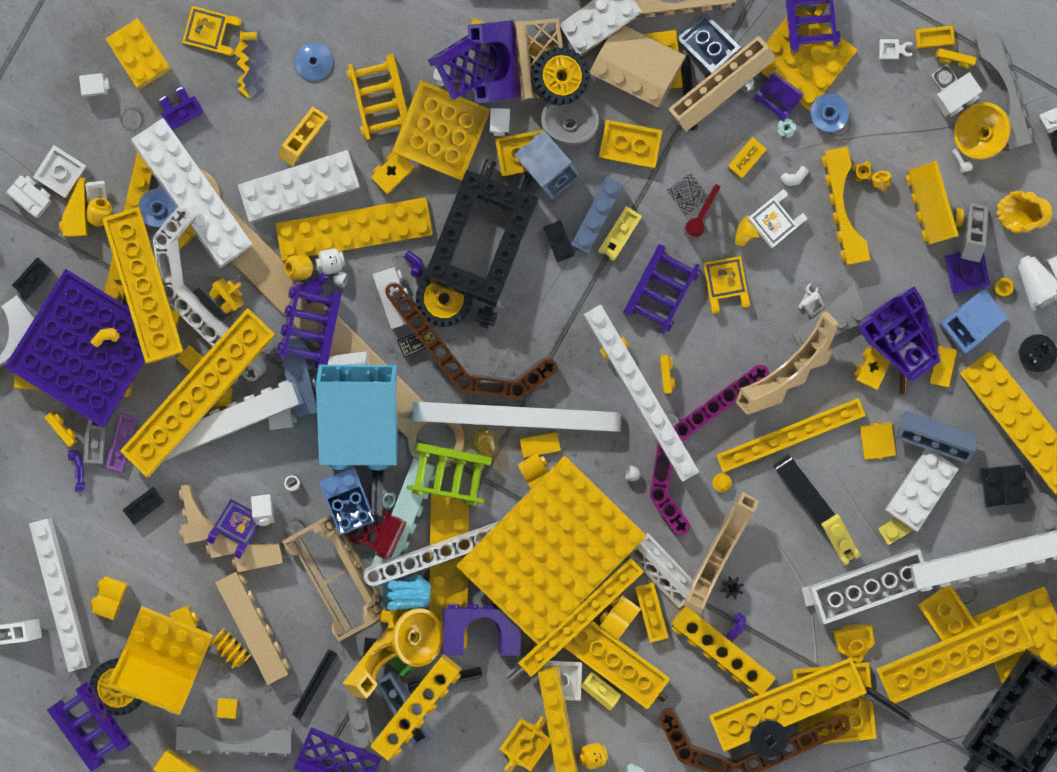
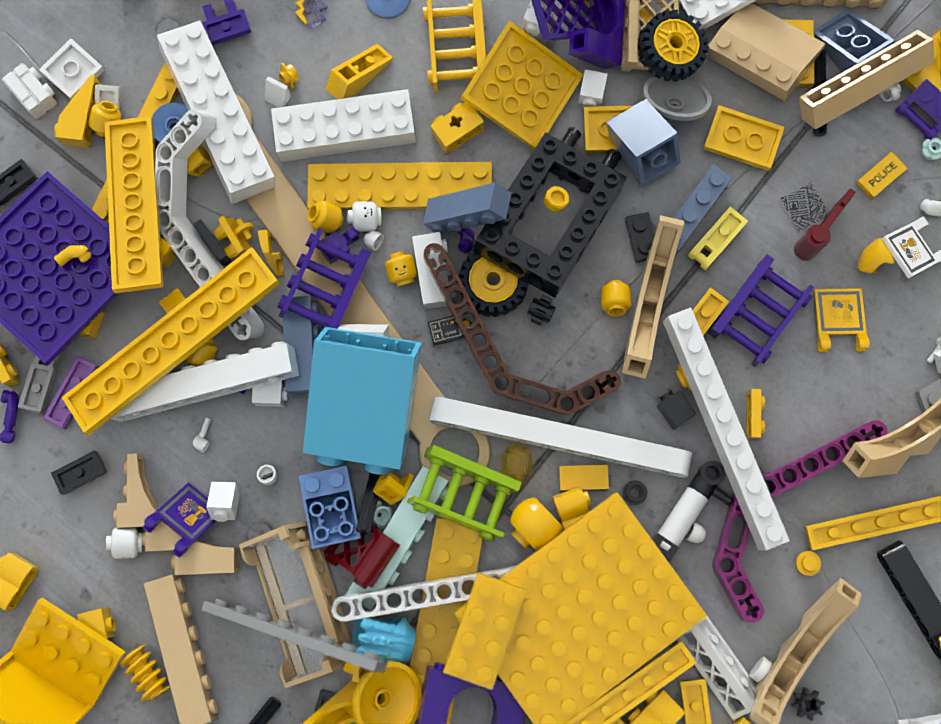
camera: 15 degrees right, 10 degrees down
(192, 554) = (124, 543): none -> white head
(233, 466) = (199, 442): none -> white hand
(236, 166) = (276, 93): none -> white slope
(243, 148) = (288, 75): none -> yellow plate
(264, 309) = (274, 259): none -> yellow slope
(346, 602) = (302, 636): none -> light grey plate
(368, 300) = (401, 269): none -> yellow head
(393, 478) = (392, 488): none -> yellow panel
(413, 248) = (467, 208): none -> sand blue brick
(481, 575) = (484, 631): none -> yellow plate
(483, 229) = (556, 199): none -> yellow tile
(507, 488) = (534, 524): none -> yellow wheel
(544, 297) = (615, 298): none -> yellow head
(571, 298) = (651, 296): none -> tan arch
(586, 454) = (642, 492): none -> black plate
(604, 379) = (675, 408): none -> black brick
(618, 297) = (709, 309): none -> yellow plate
(623, 457) = (689, 508): none -> piece
(695, 566) = (760, 669): none -> white tile

